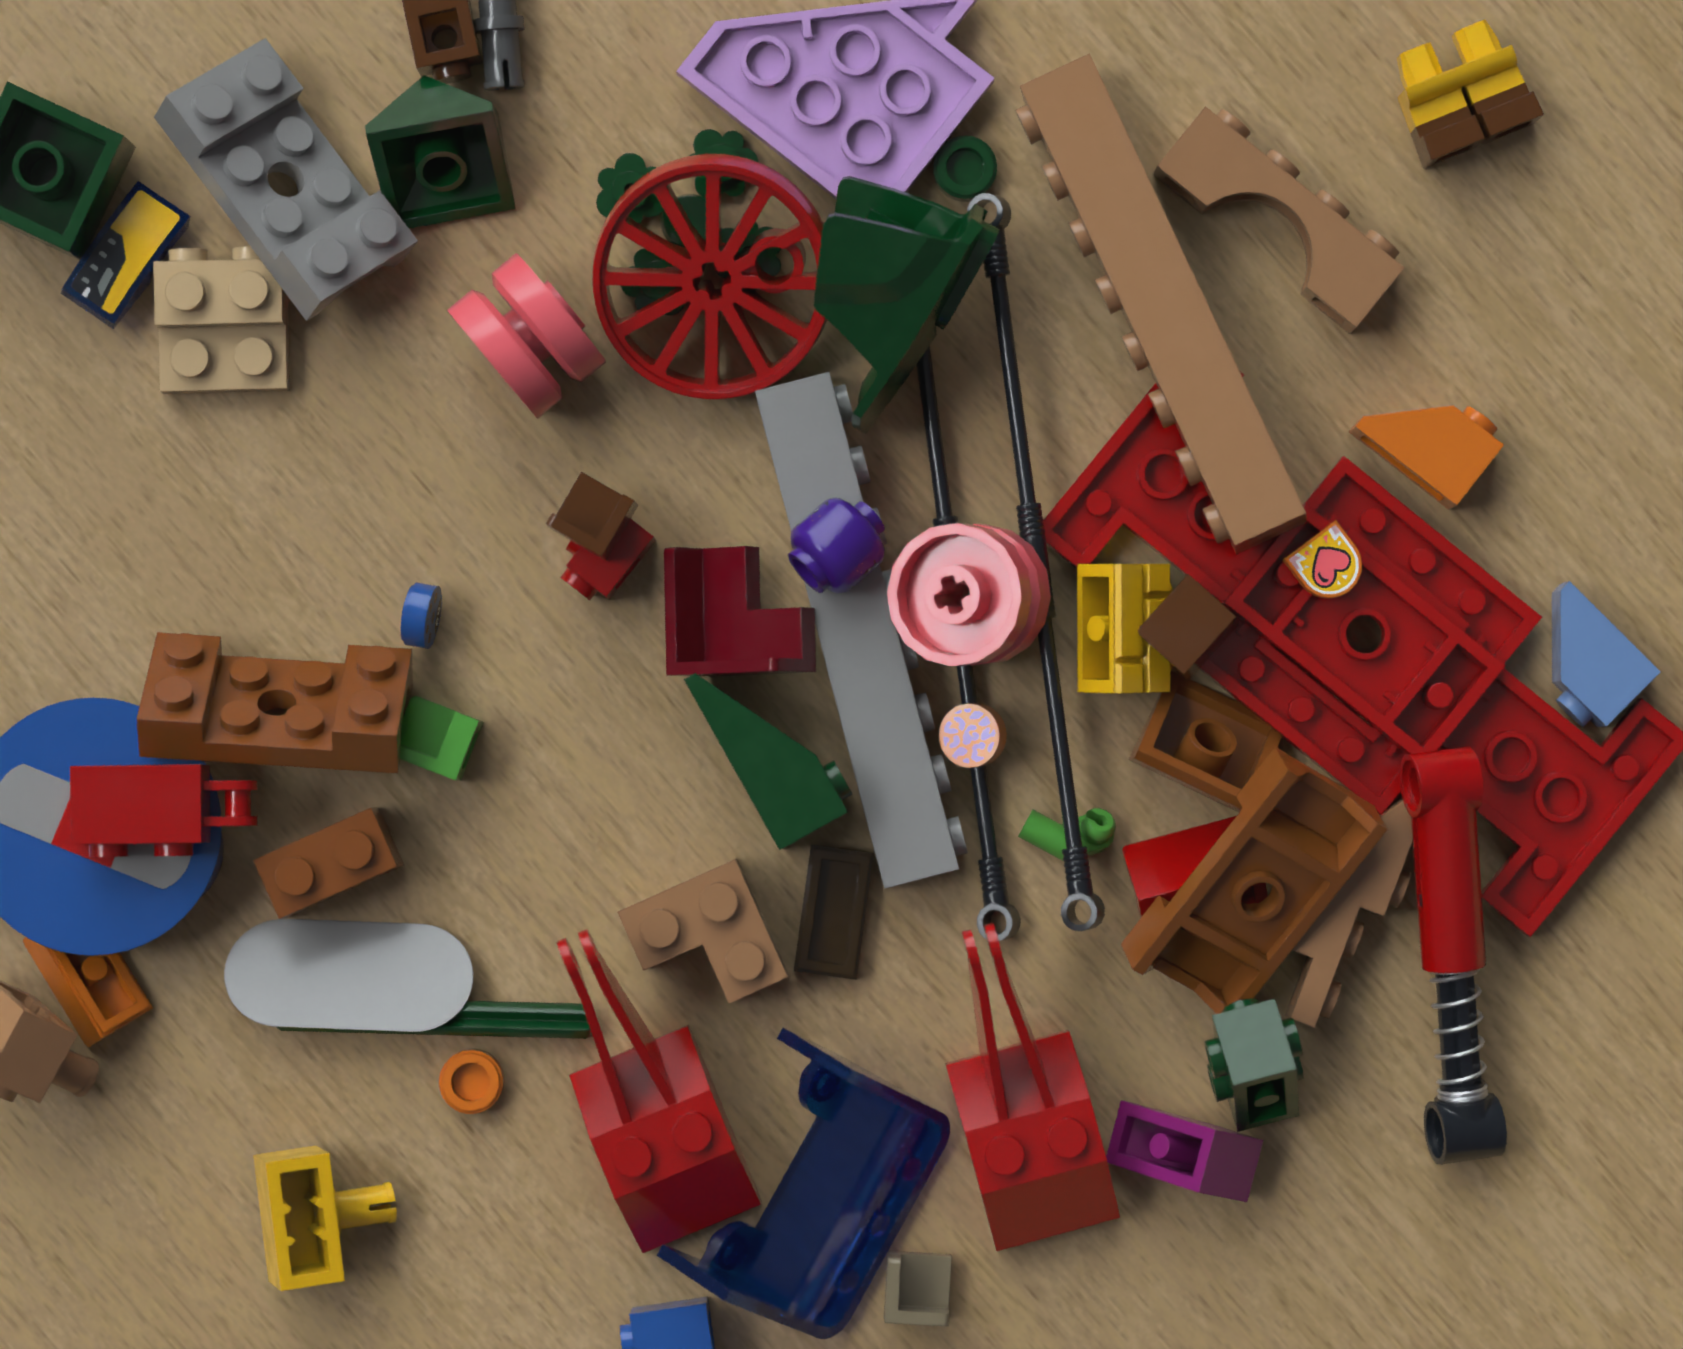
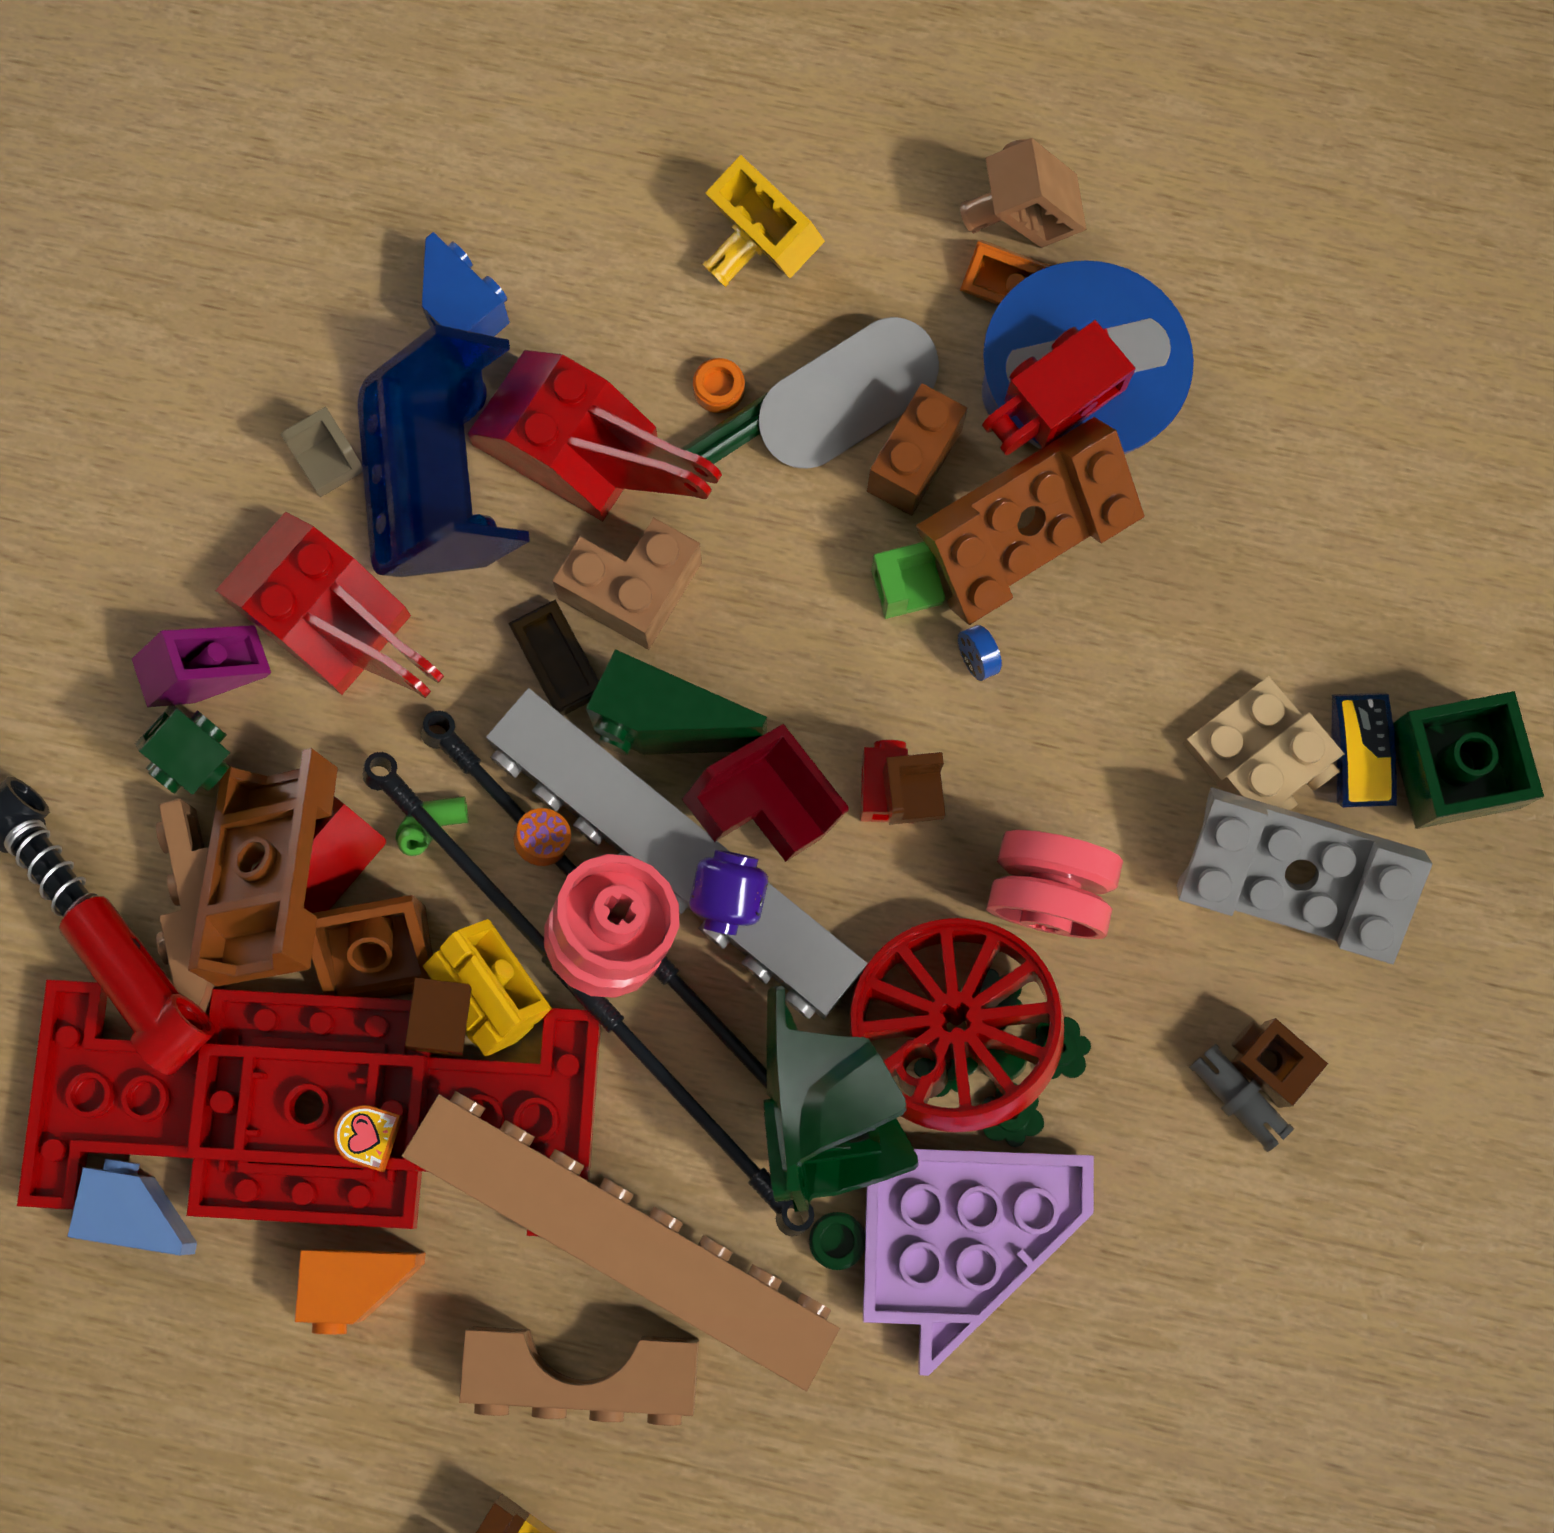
camera: 140 degrees right, 10 degrees down
(440, 155) = (1210, 971): dark green slope -> none

